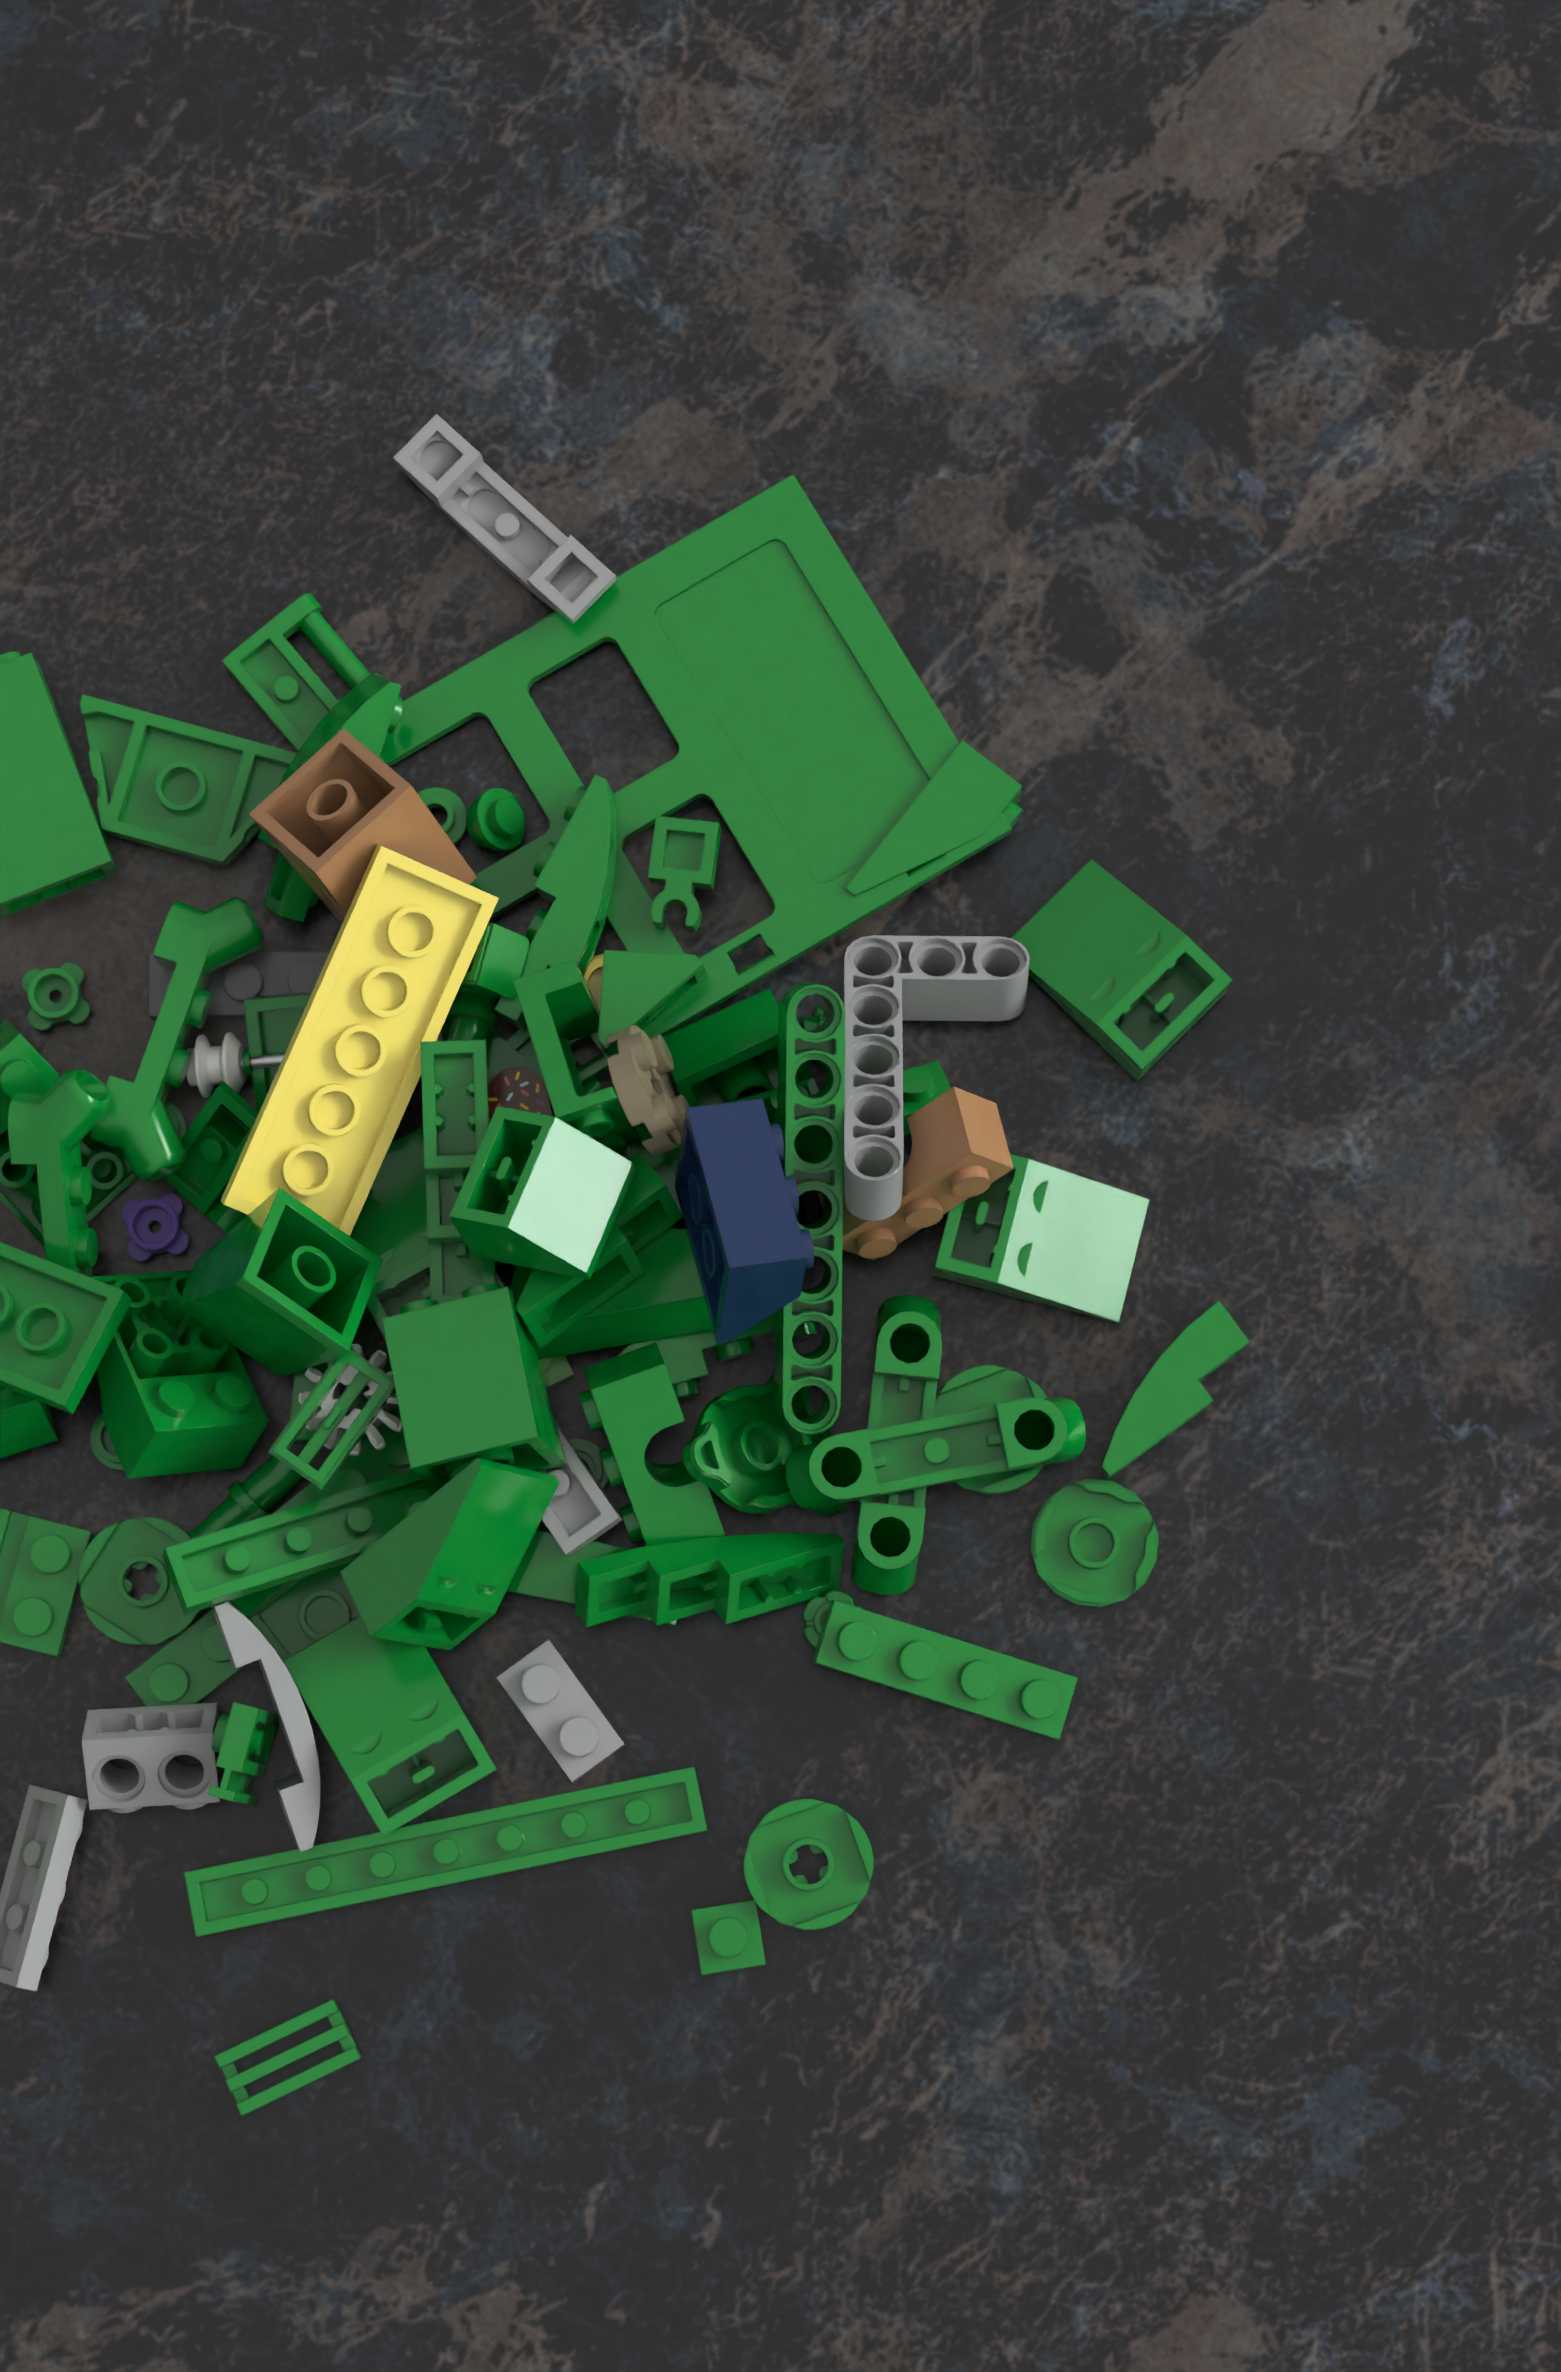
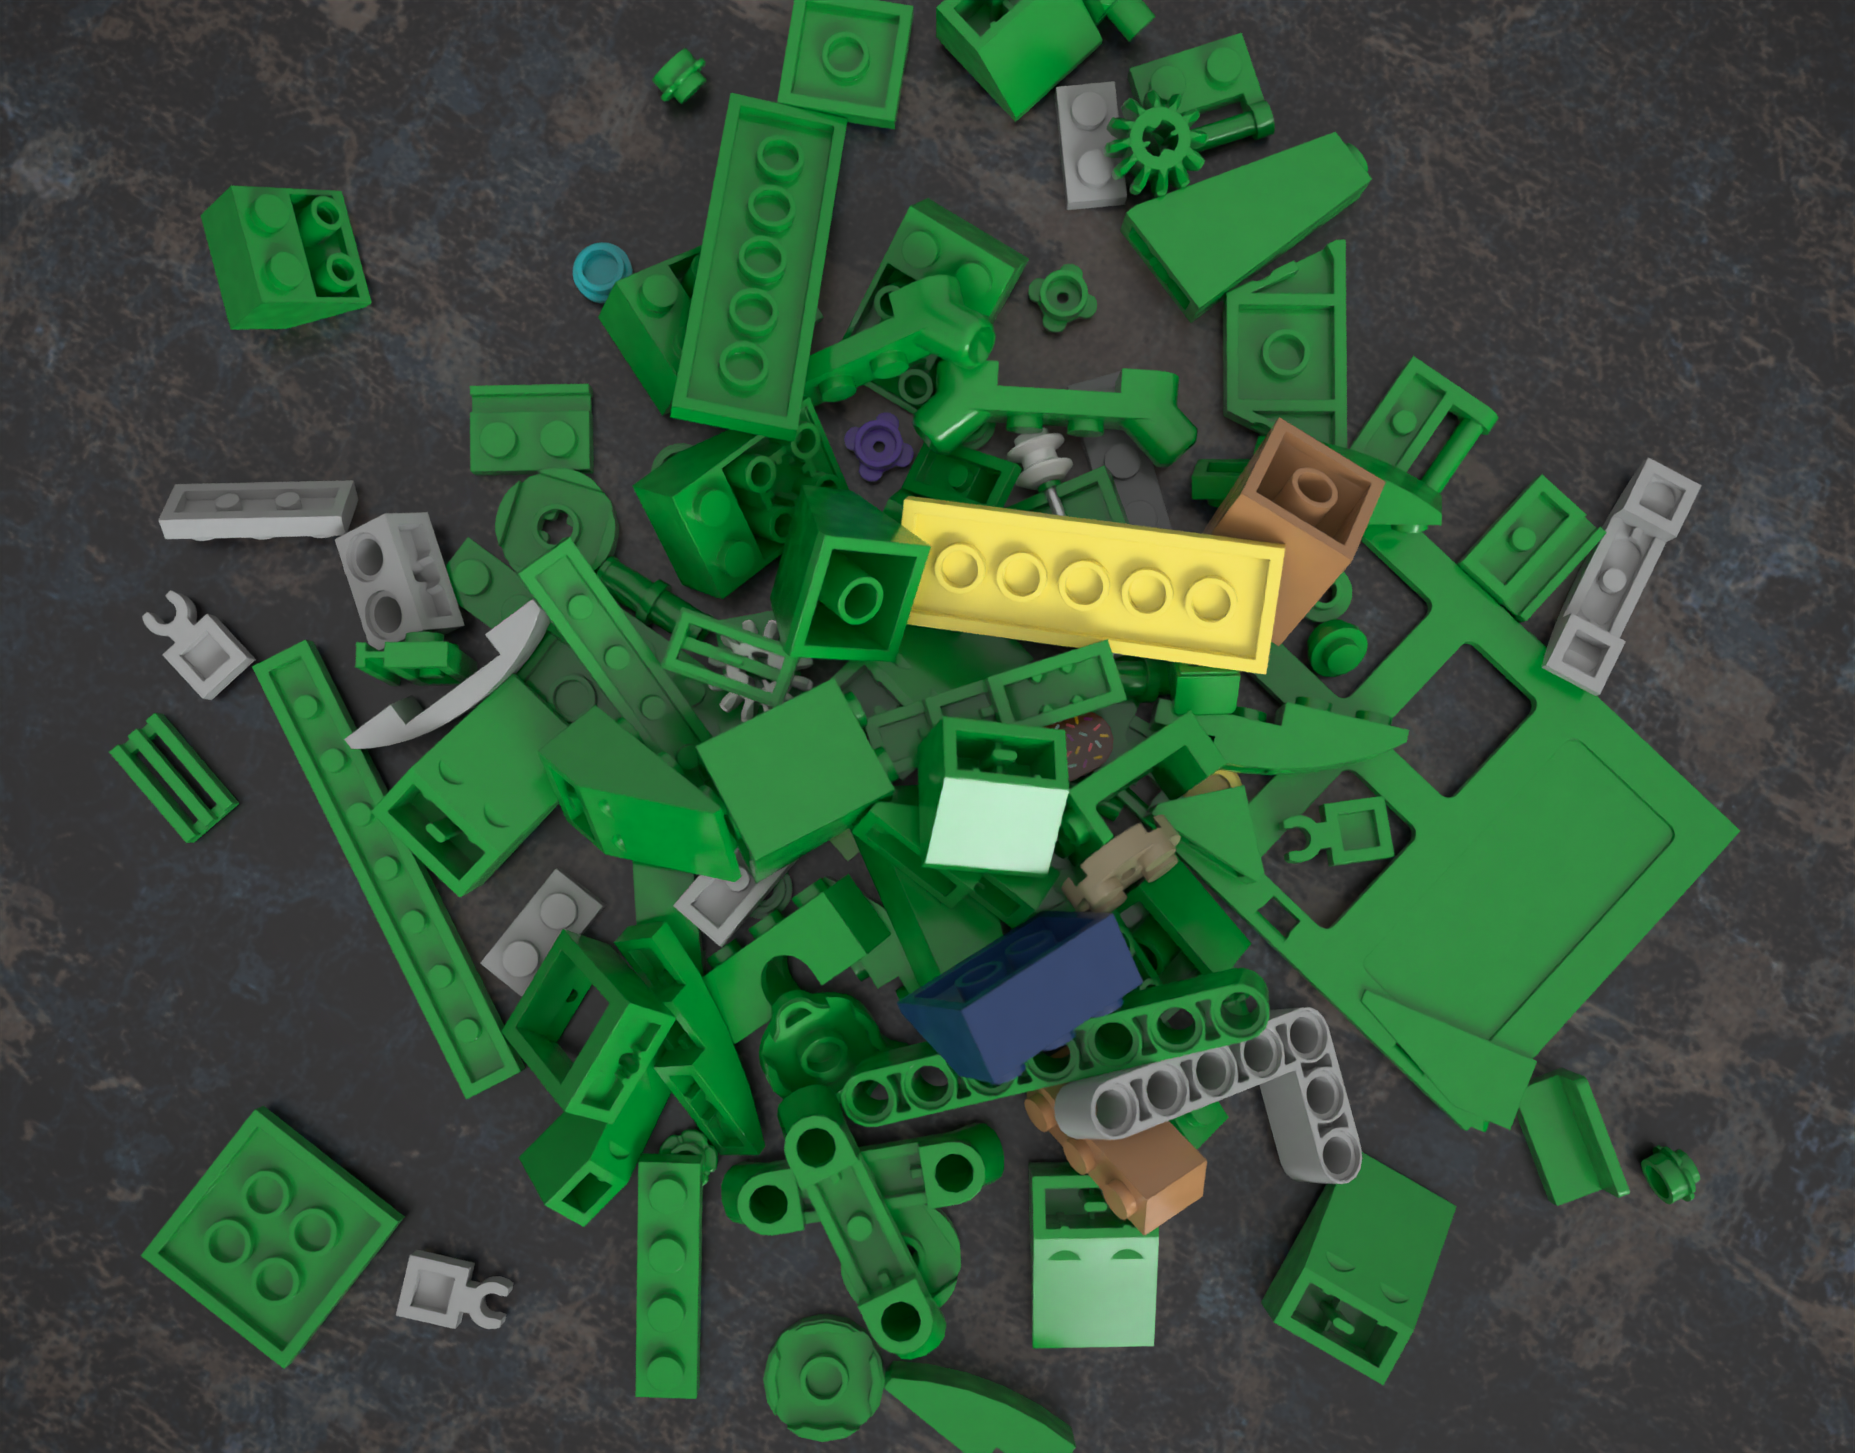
camera: 75 degrees right, 5 degrees up
(164, 1988) = (203, 650): none -> light grey plate
(451, 598) = (1531, 548): none -> green plate
(672, 1621) = (631, 1024): none -> green window
(728, 1937) = (382, 1141): green plate -> none
(779, 1695) = (586, 1161): none -> green slope
(794, 2073) = (272, 1236): none -> green plate
(842, 1880) = (458, 1233): green plate -> none
(897, 1911) = (441, 1289): none -> light grey plate
(1052, 731) = (1569, 1138): none -> green panel
(1116, 639) = (1671, 1174): none -> green plate

